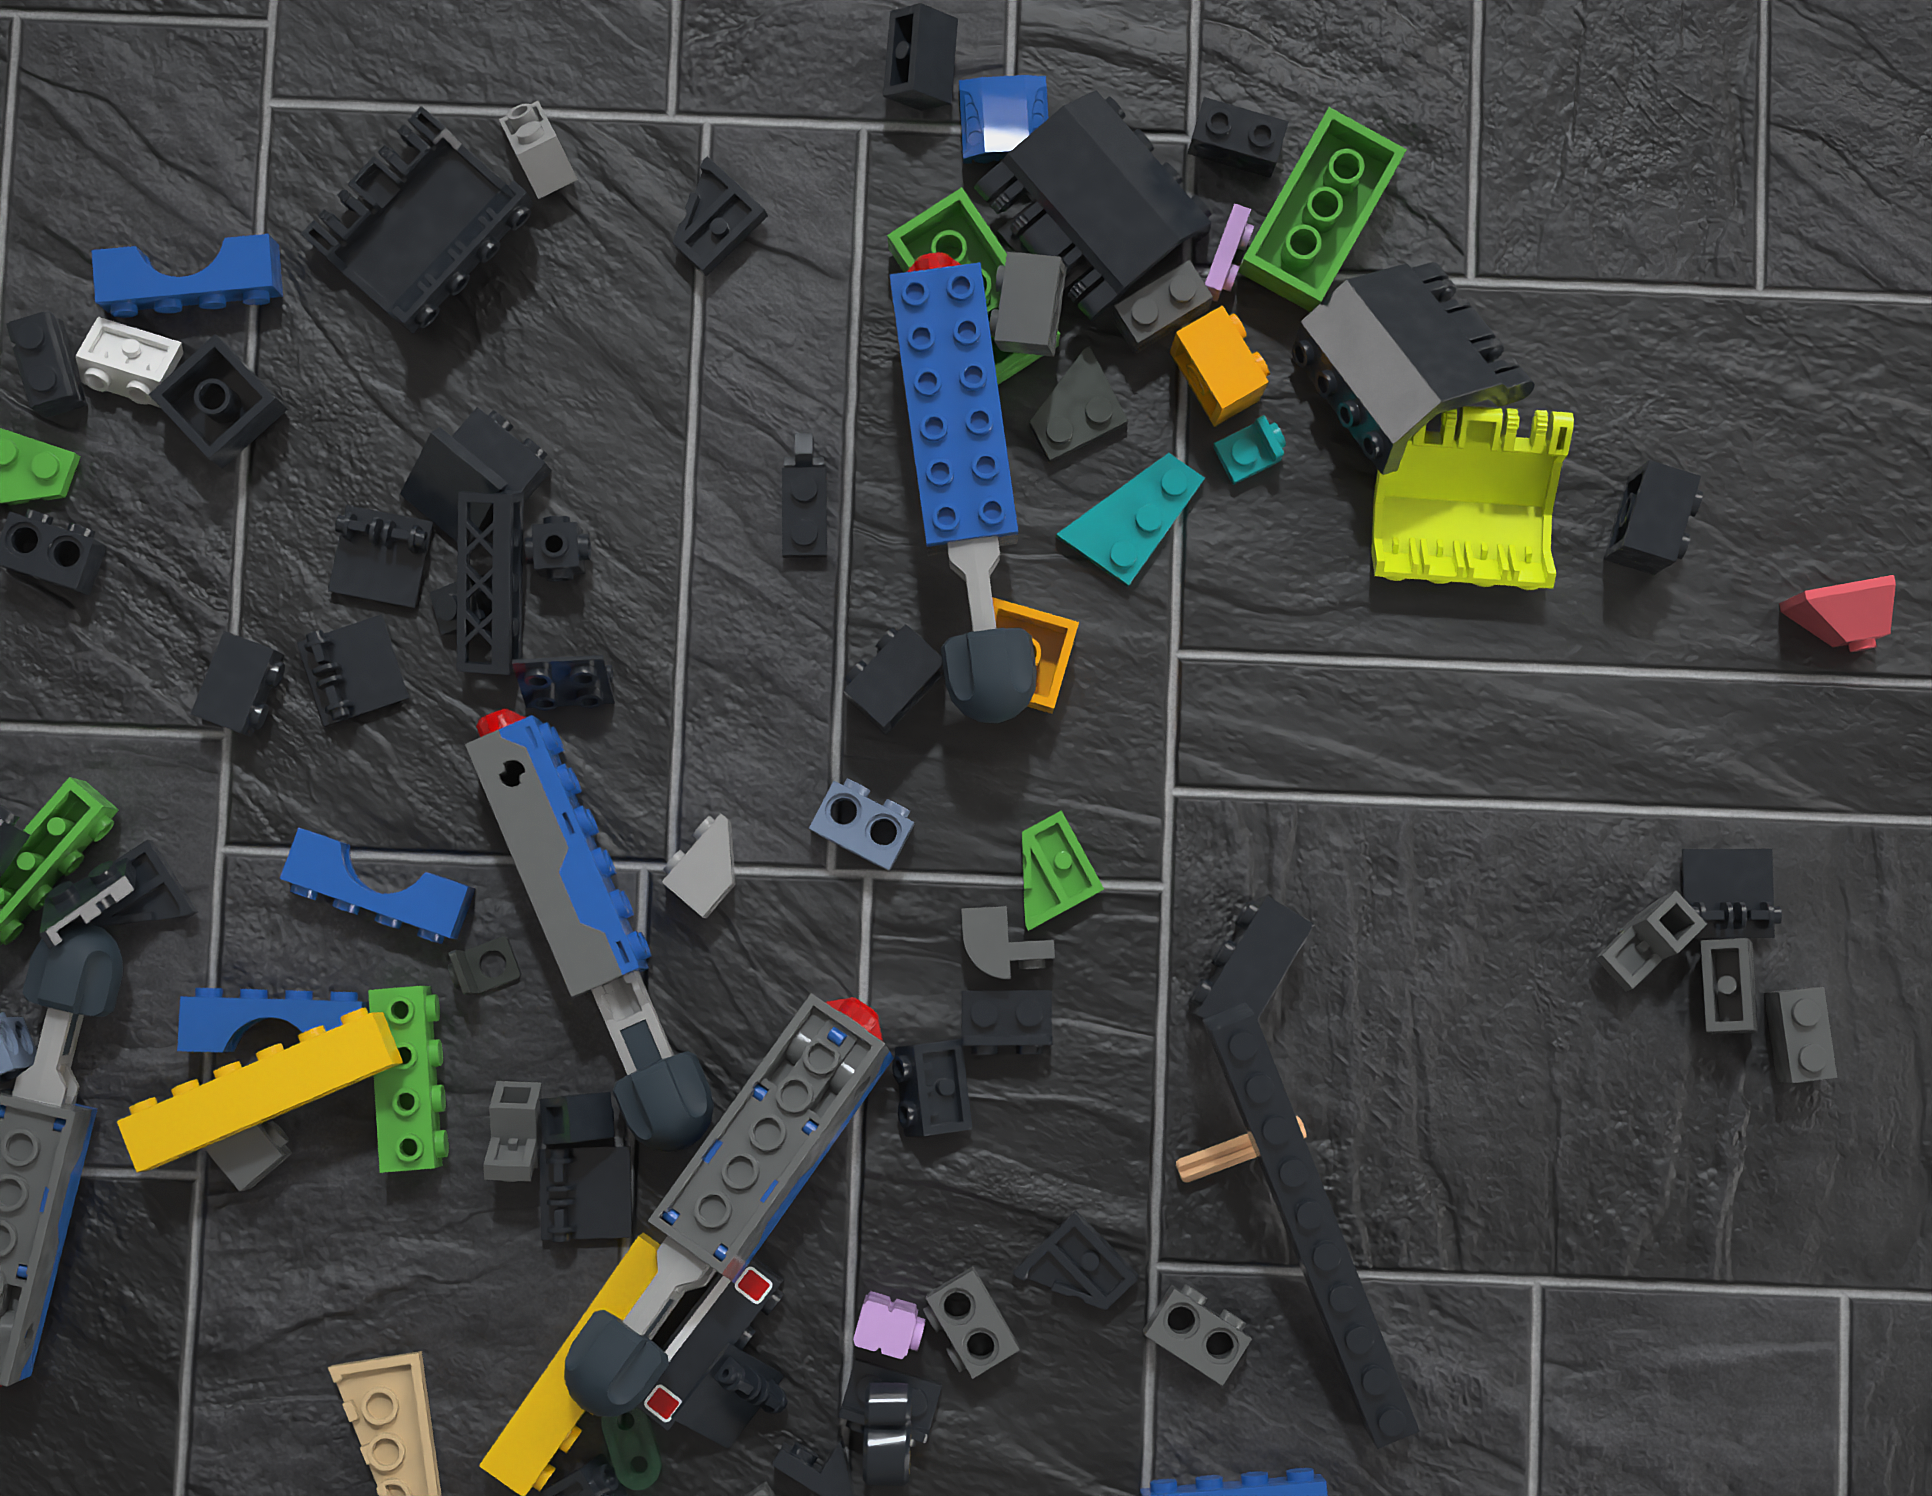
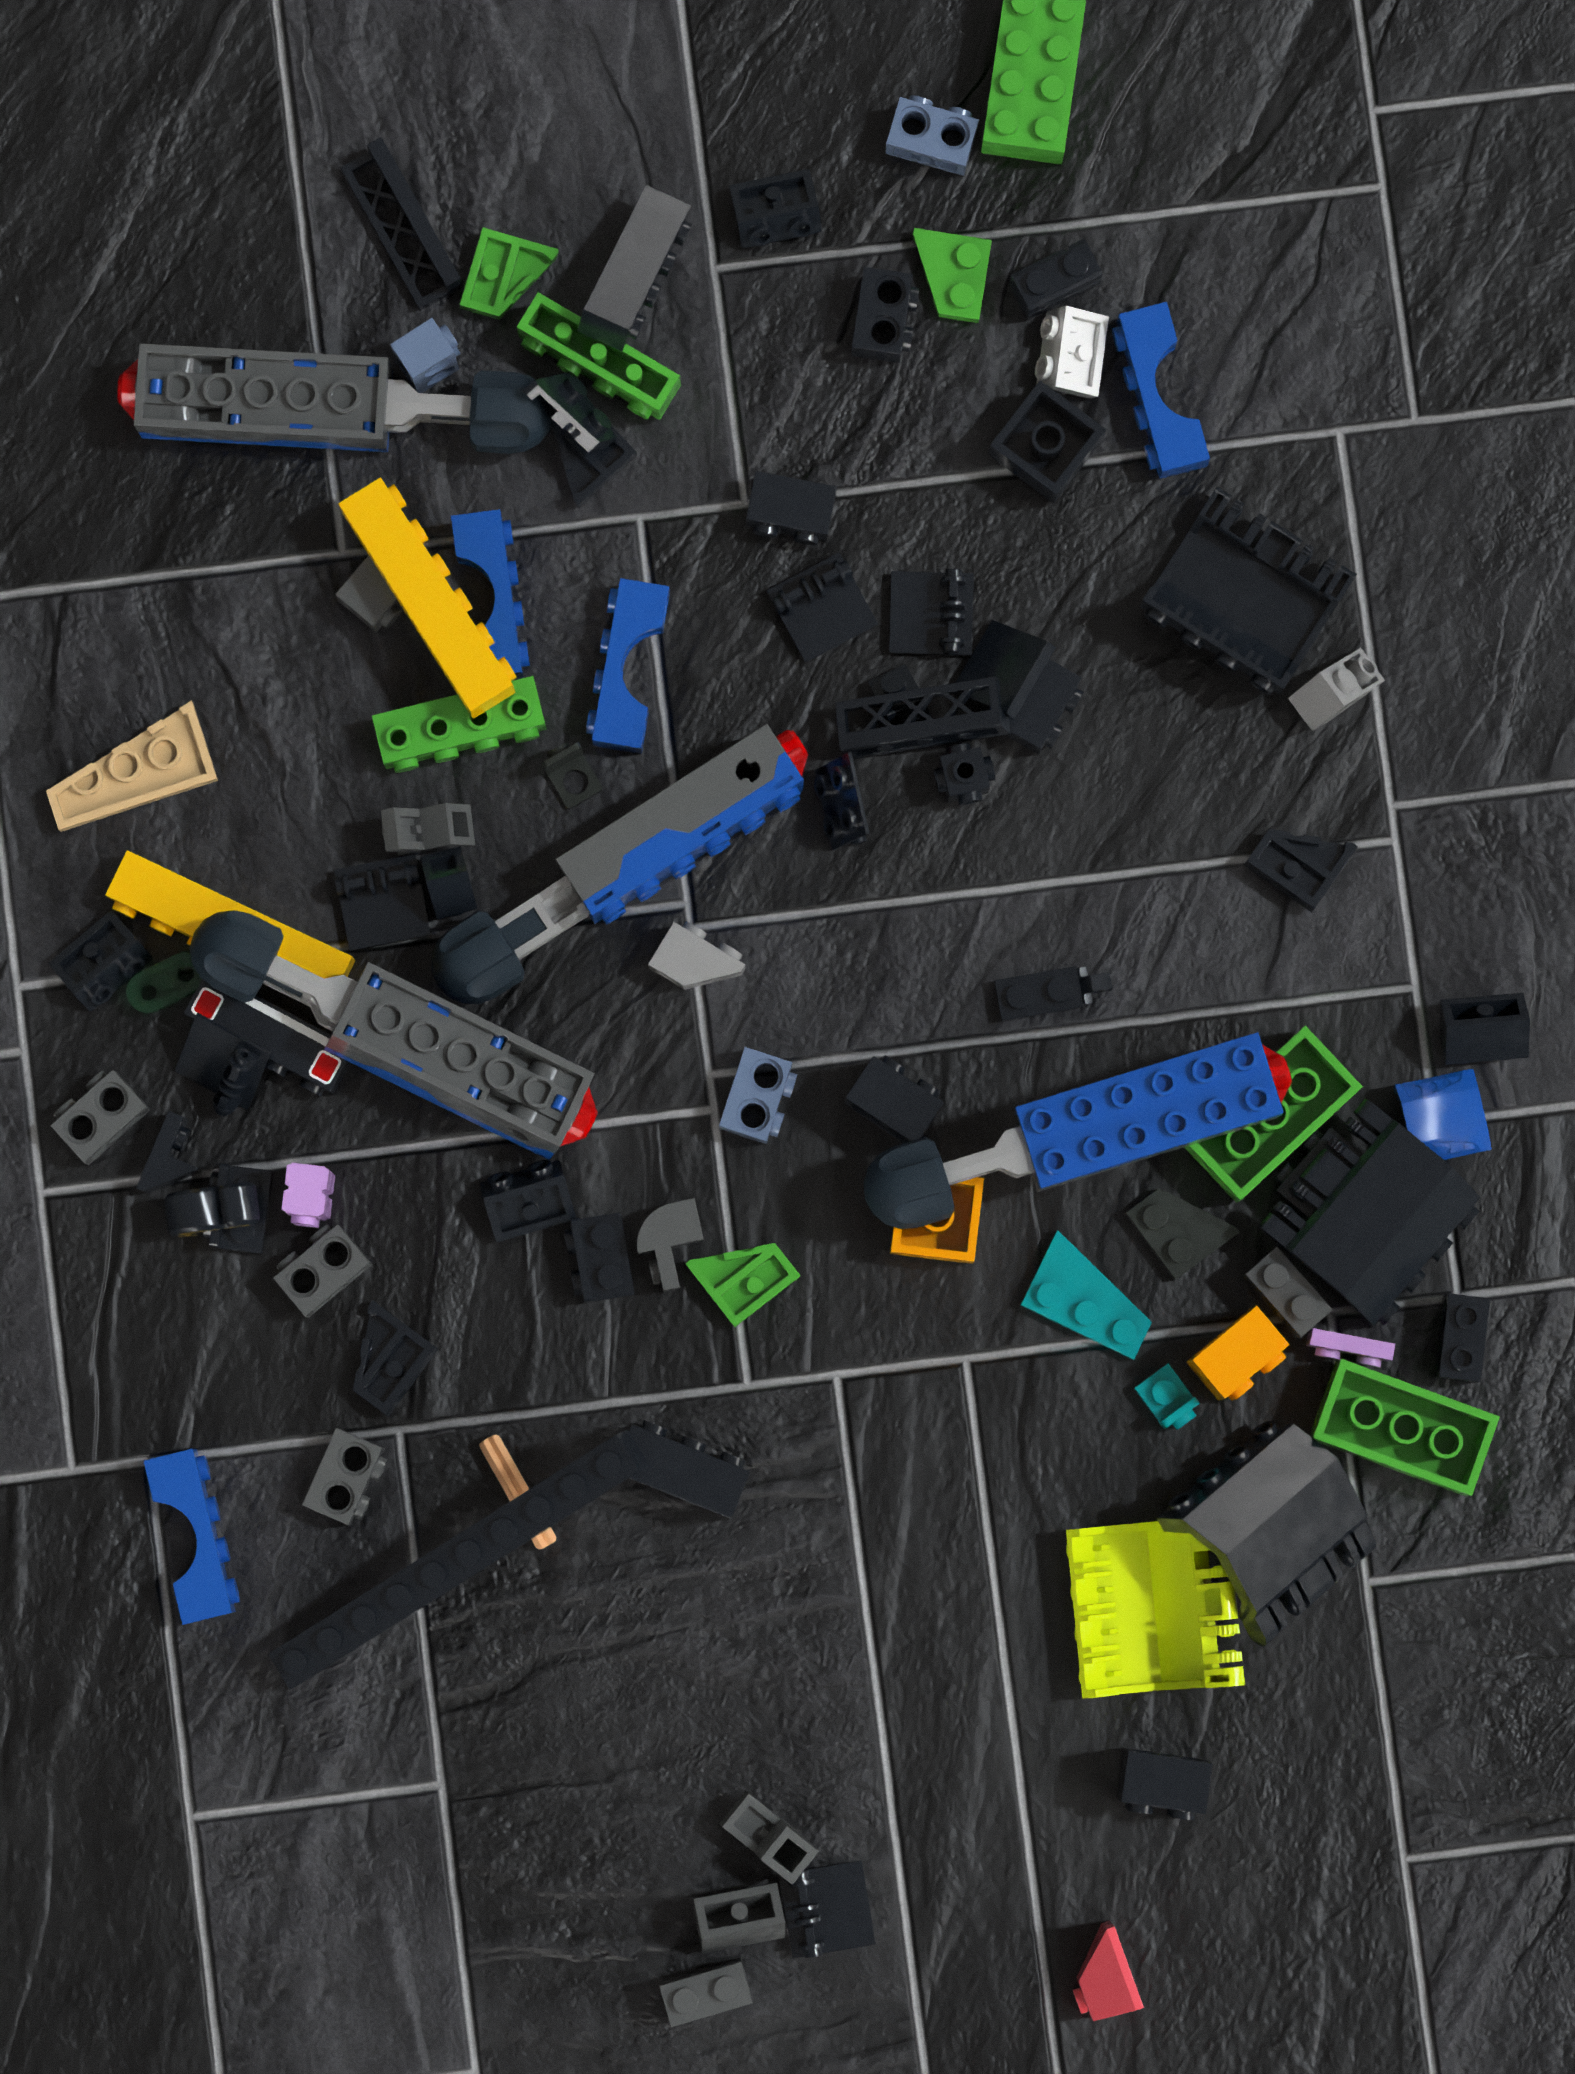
camera: 80 degrees right, 0 degrees up
(1028, 303) = (1259, 1165): dark grey brick -> none

